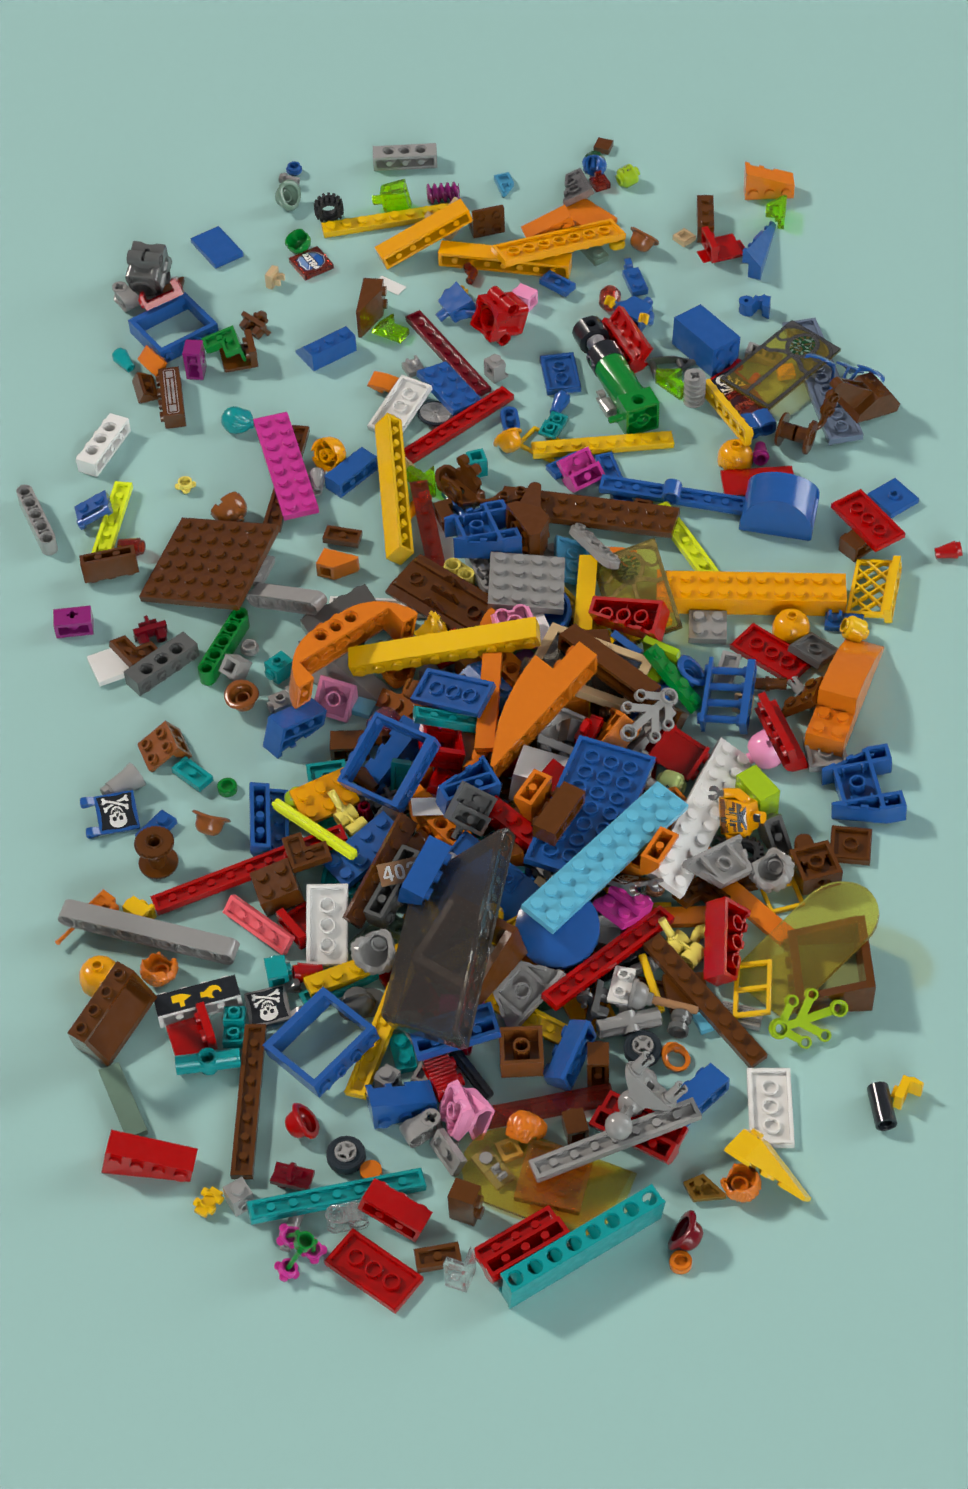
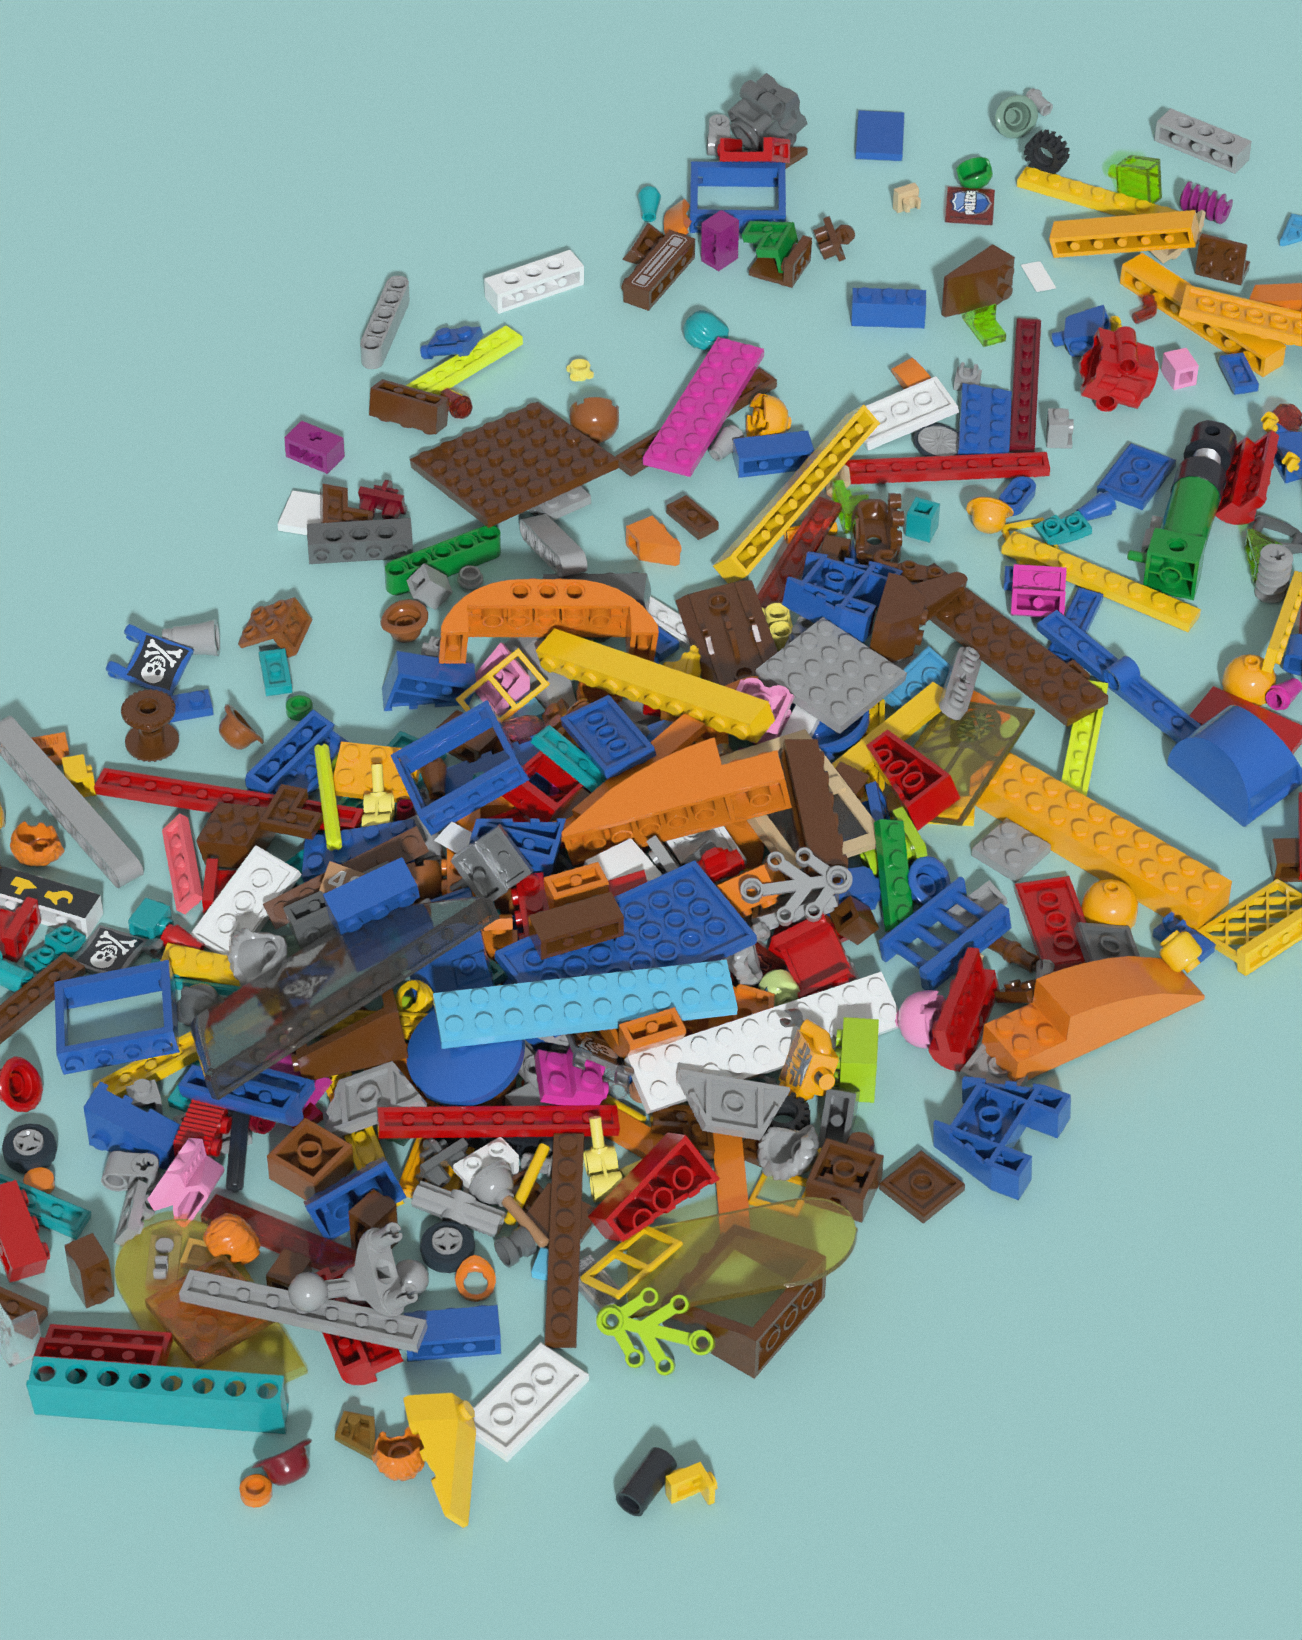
camera: 35 degrees right, 5 degrees down
(294, 168) = (1058, 91): blue plate -> none
(333, 700) = (489, 677): none -> yellow window

